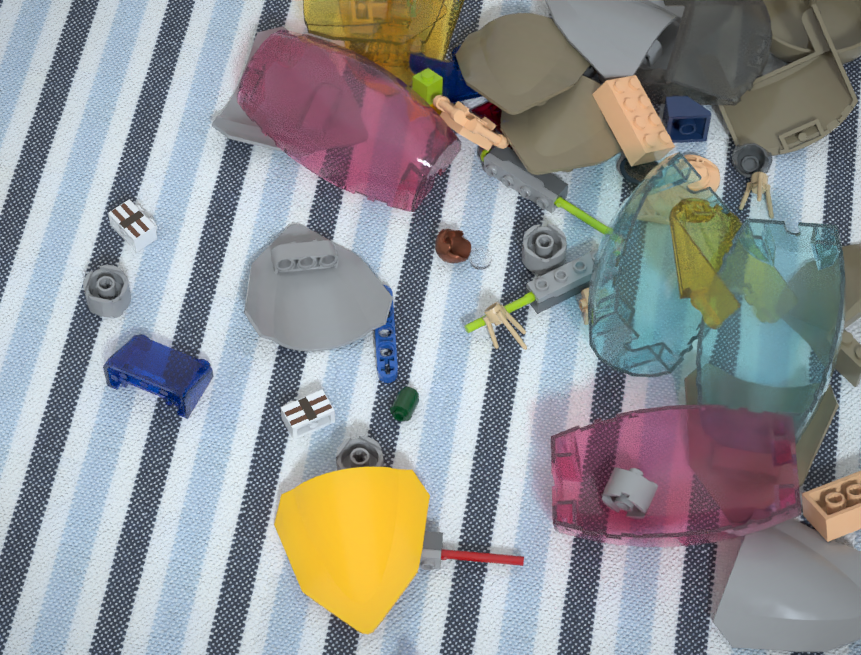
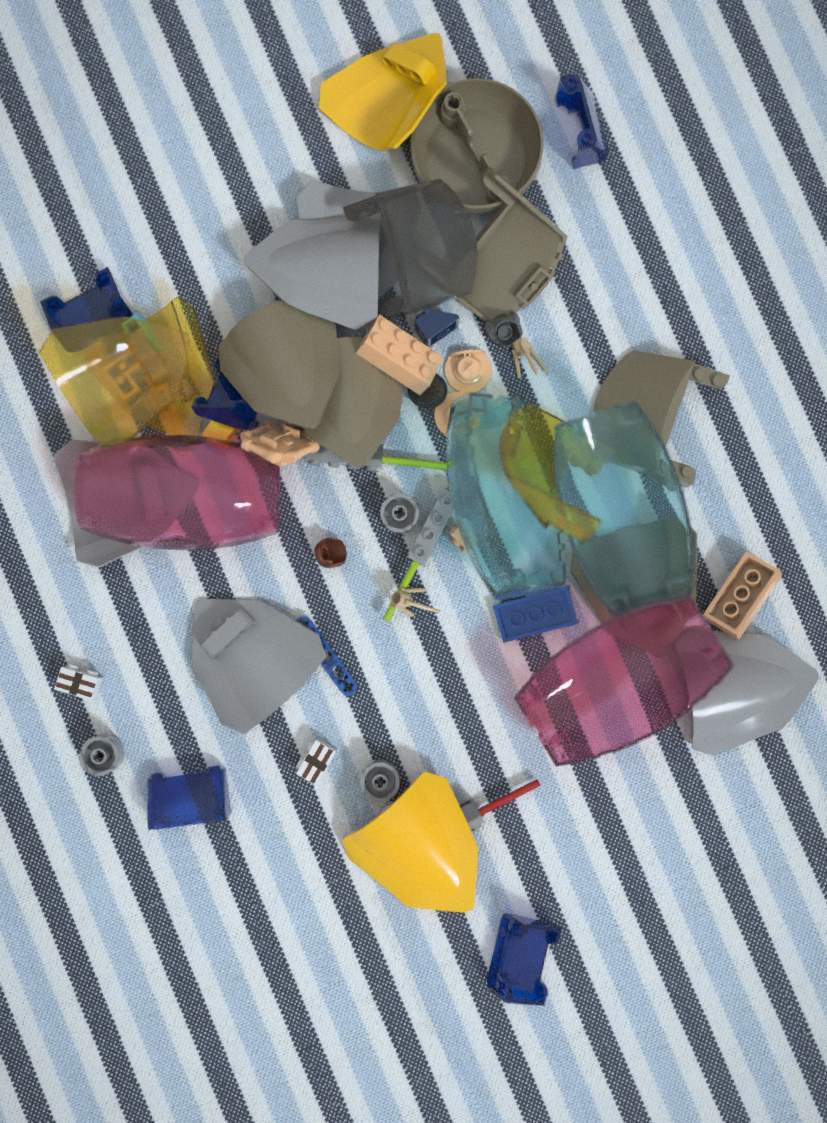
camera: 30 degrees left, 30 degrees up
(405, 404) = (379, 708): dark green brick -> none
(427, 85) = (225, 431): lime brick -> none
(608, 397) = (536, 614): none -> blue plate
(629, 492) = (587, 695): light grey brick -> none

